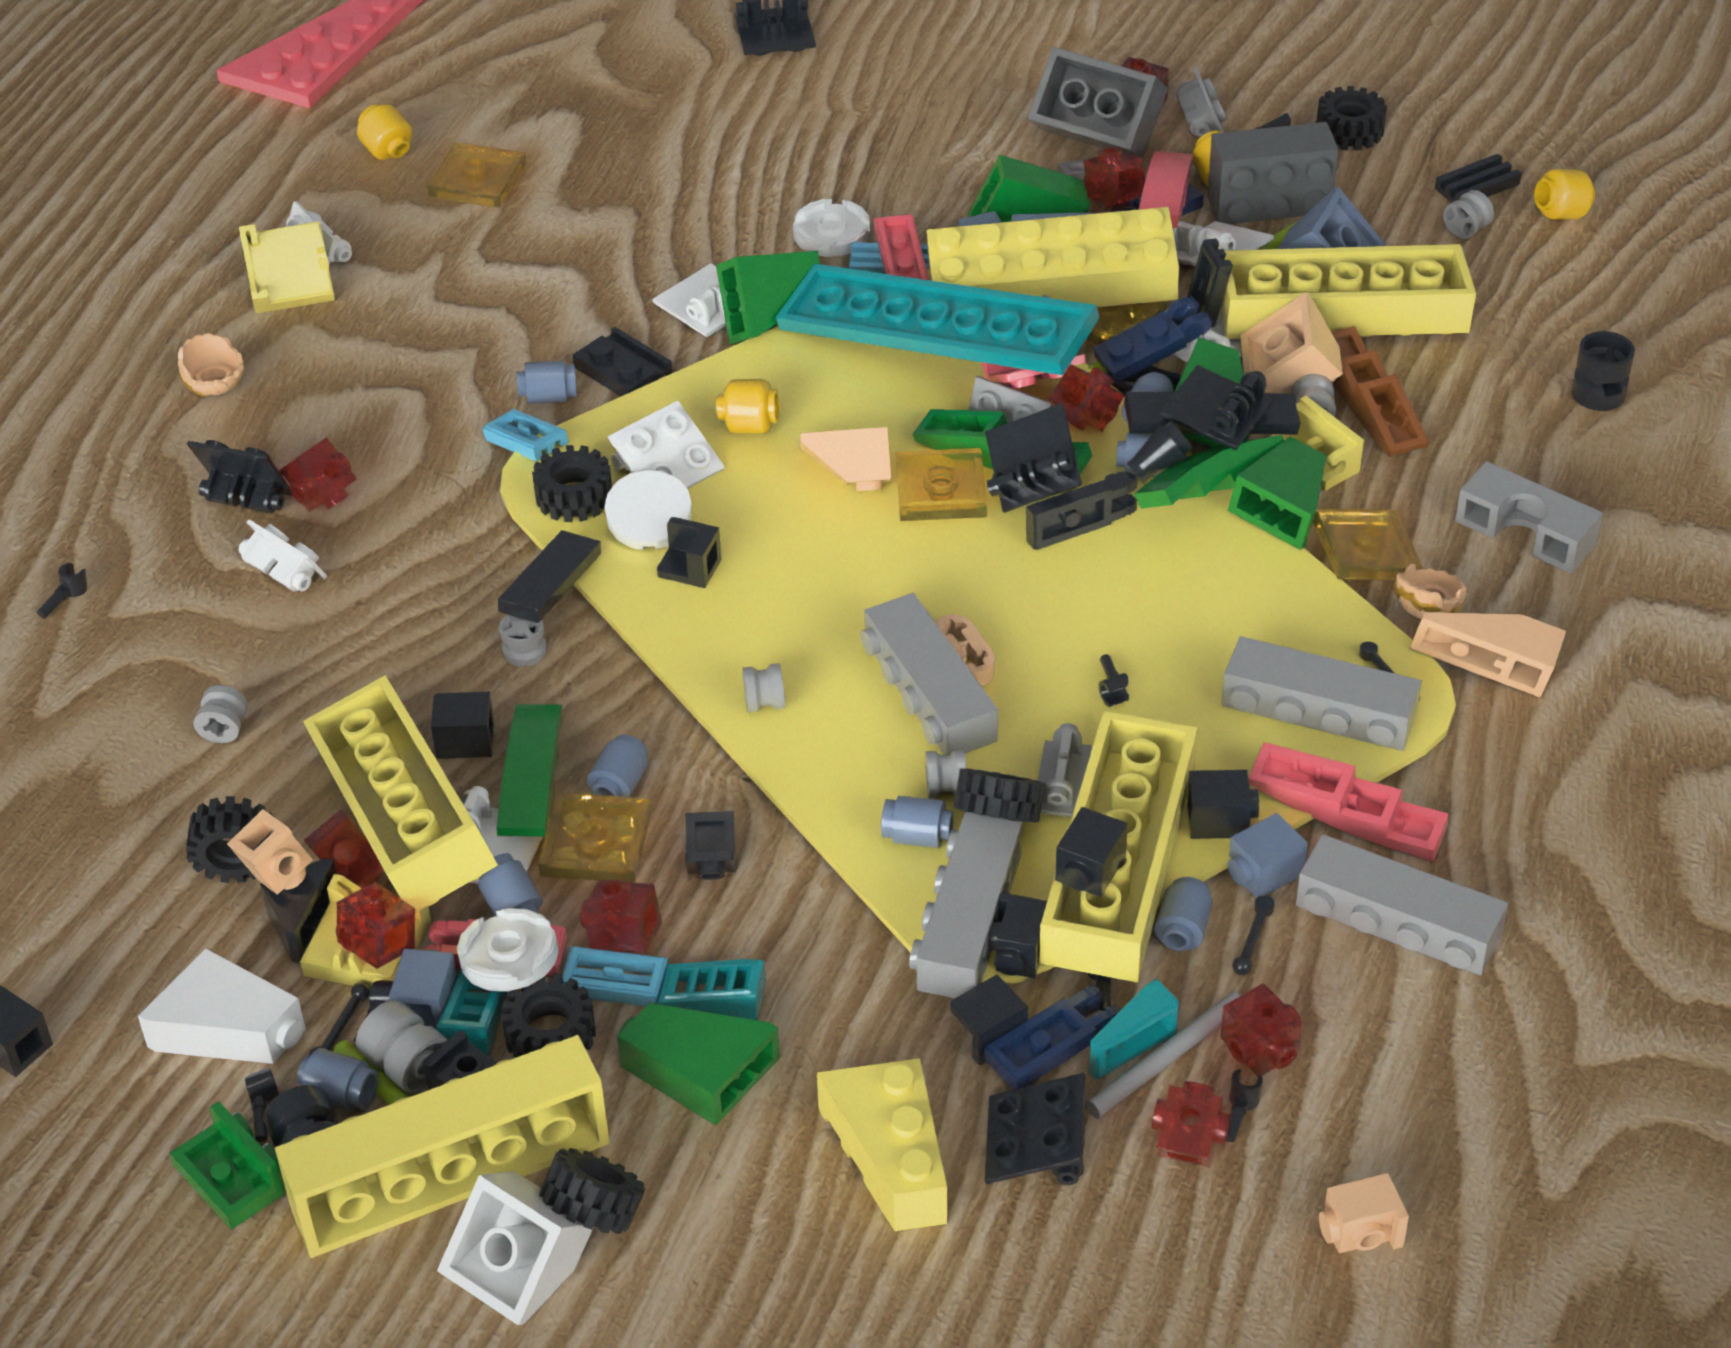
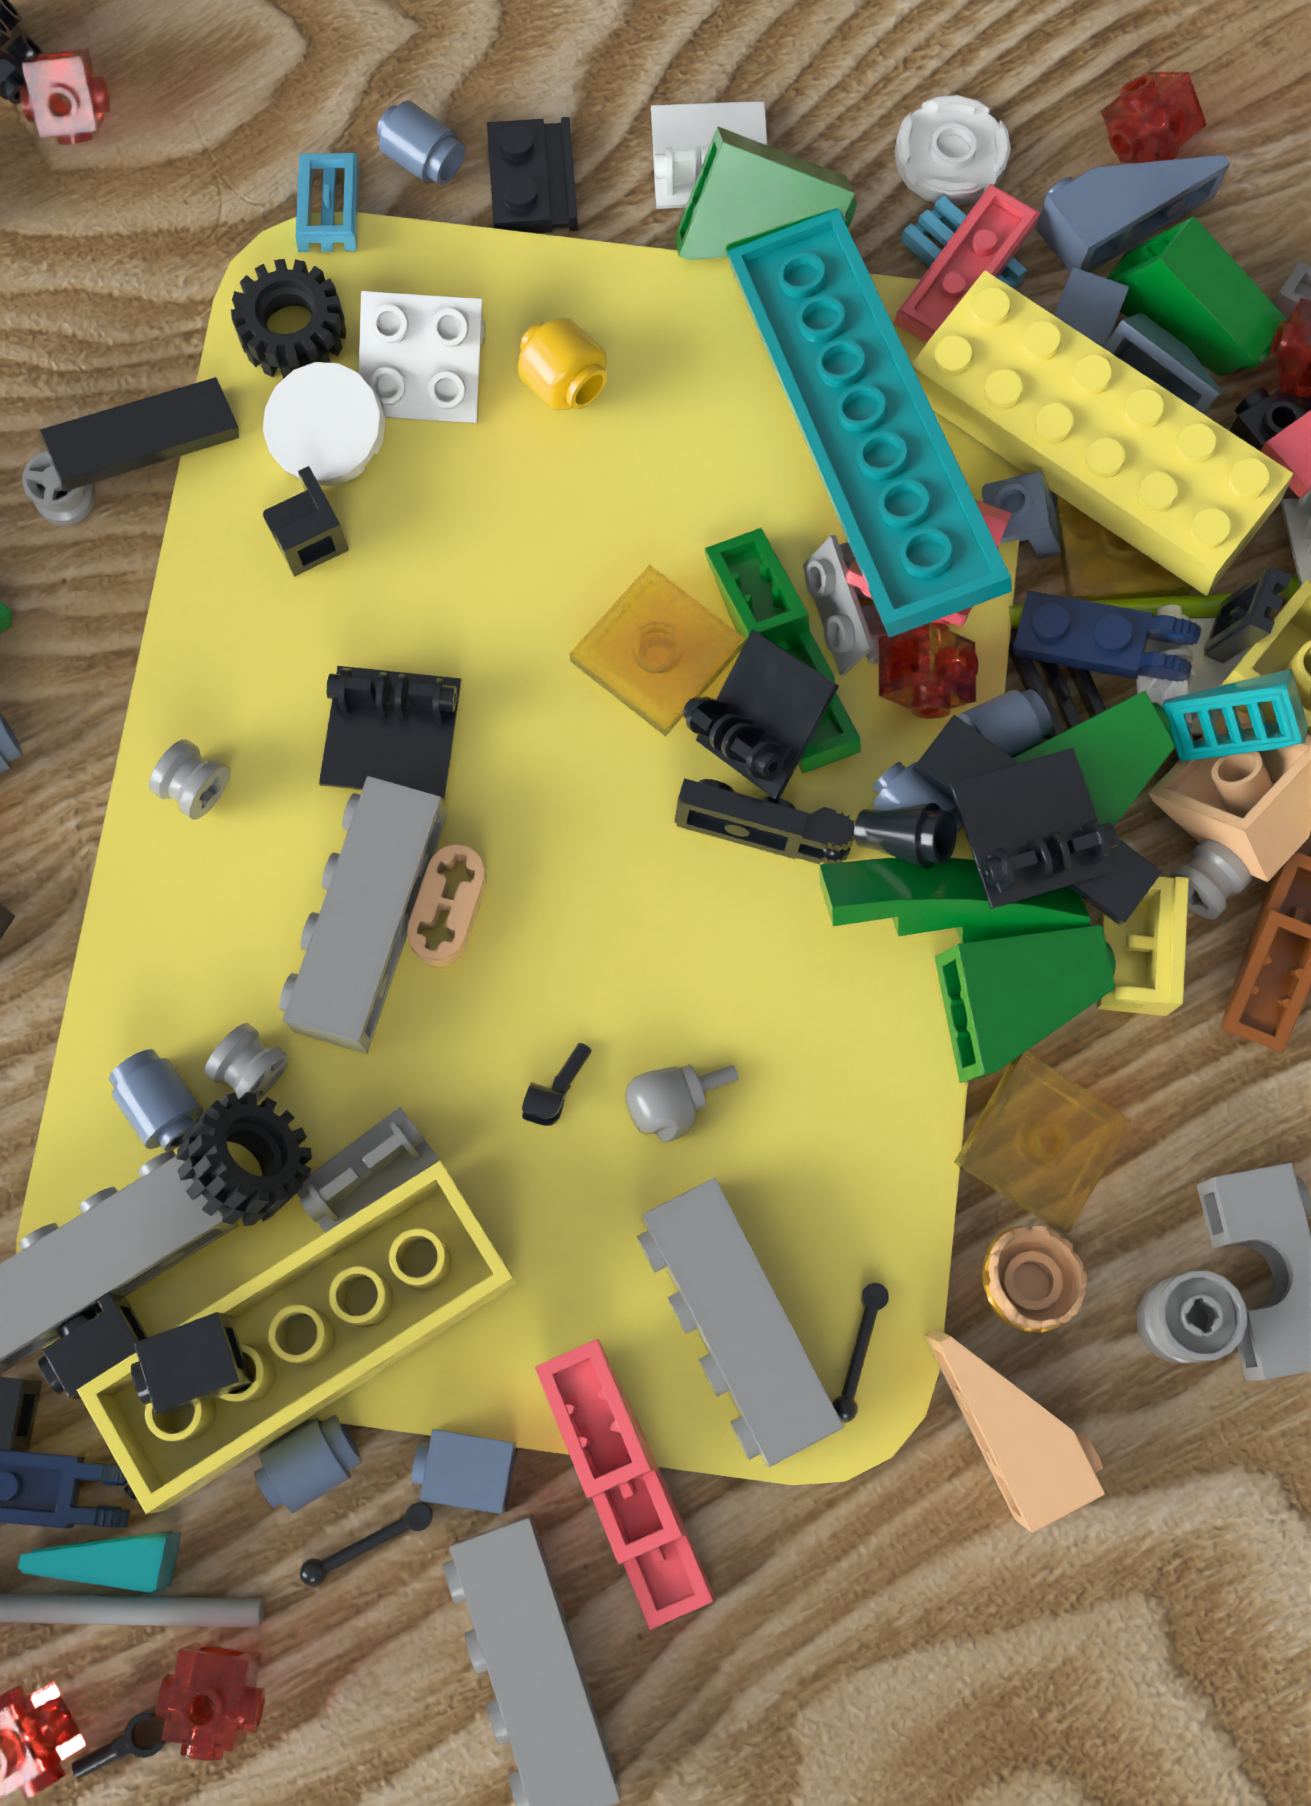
camera: 40 degrees right, 30 degrees up
(835, 600) = (389, 729): none -> black hinge
(852, 455) = (596, 523): light nougat slope -> none
(921, 151) = (1153, 117): none -> clear red brick
(947, 191) = (1122, 205): none -> sand blue slope
(1174, 644) = (667, 1098): none -> light grey piece
(1220, 803) = (473, 1372): black brick -> none
(1275, 288) = (1274, 687): none -> teal slope
(1517, 551) = (1191, 1317): none -> light grey wheel

